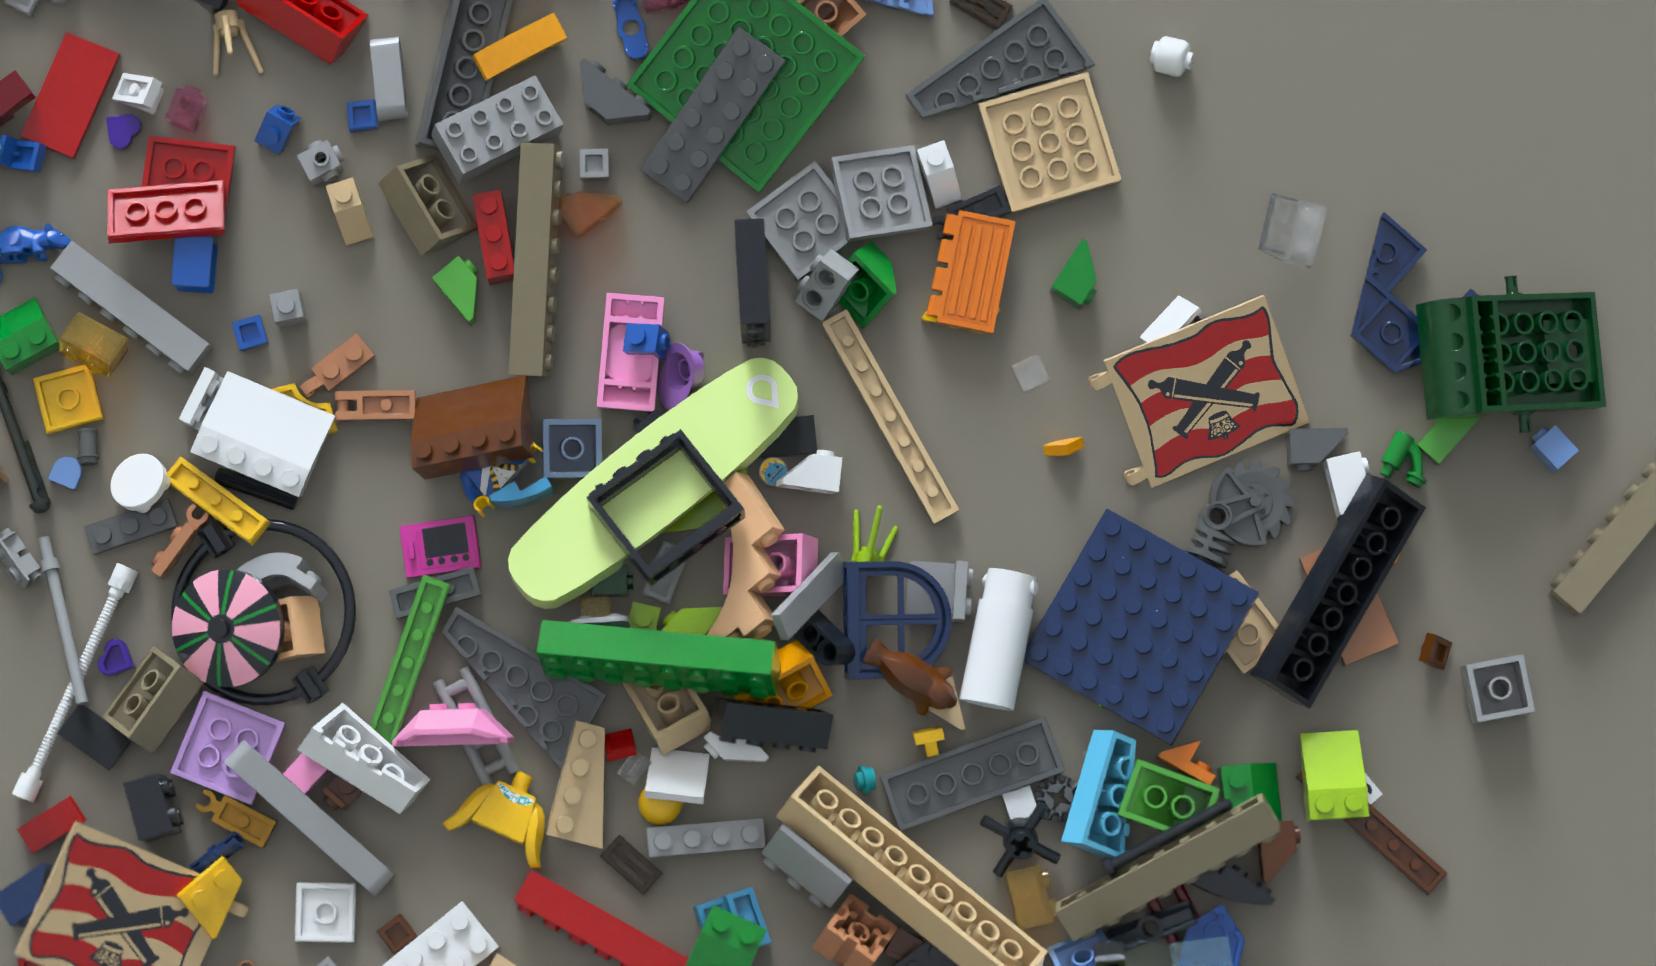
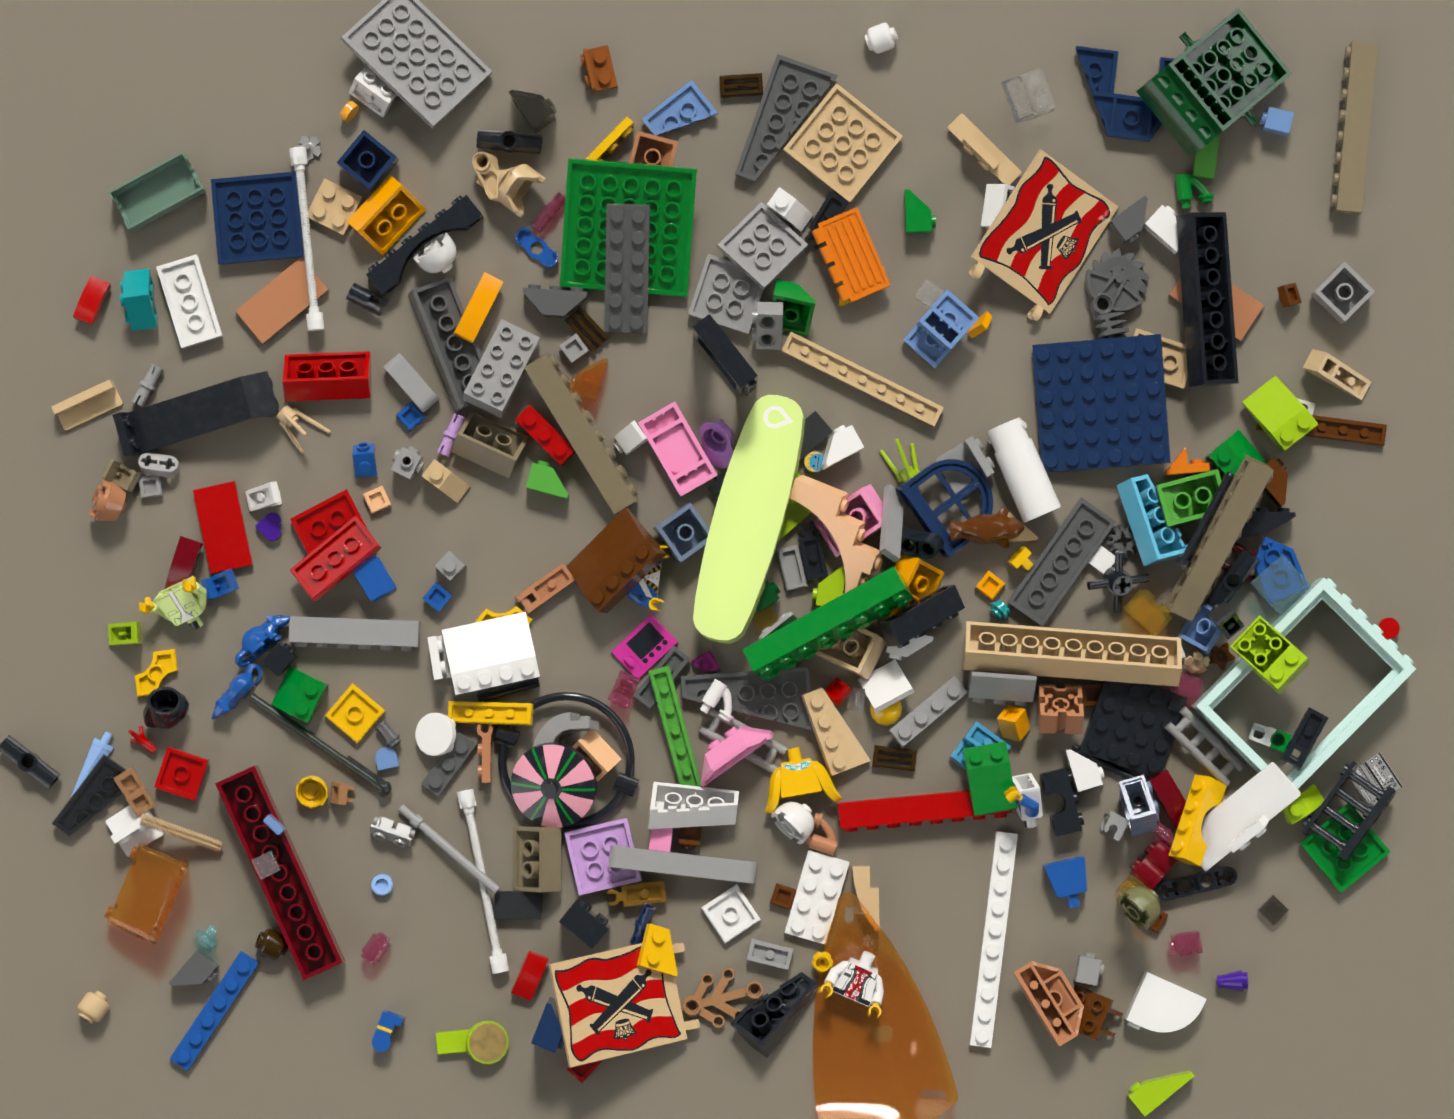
camera: 30 degrees left, 5 degrees up
(28, 281) = (280, 658): none -> black brick
(93, 345) = (348, 670): clear yellow brick -> none
(116, 658) = (496, 849): dark purple tile -> none
(190, 117) = (303, 493): clear pink brick -> none
(260, 181) = (377, 499): none -> light nougat tile
(338, 366) = (505, 579): nougat plate -> none
(377, 173) = (450, 434): none -> lavender pin
(382, 577) = (623, 689): none -> clear pink bracket
(469, 856) = (794, 820): none -> white cylinder
(476, 652) = (712, 697): none -> white plant
(480, 903) = (820, 843): none -> nougat plant
(496, 612) = (706, 662): none -> magenta tile
(512, 497) = (669, 585): dark azure slope -> none
(585, 304) = (629, 438): none -> white slope
(620, 129) = (574, 315): none -> dark brown tile
(644, 616) = (798, 604): lime plate -> none
(646, 340) = (683, 435): blue bracket -> none
(693, 543) = (737, 511): black window -> none
(698, 575) = (812, 554): none -> black plate
(792, 918) = (1013, 723): none -> light orange panel
(874, 745) = (990, 585): none -> light orange tile
(1015, 419) = (940, 328): none -> medium blue bracket
(1201, 256) = (984, 150): none -> tan bracket
(1429, 776) = (1336, 373): none -> tan slope

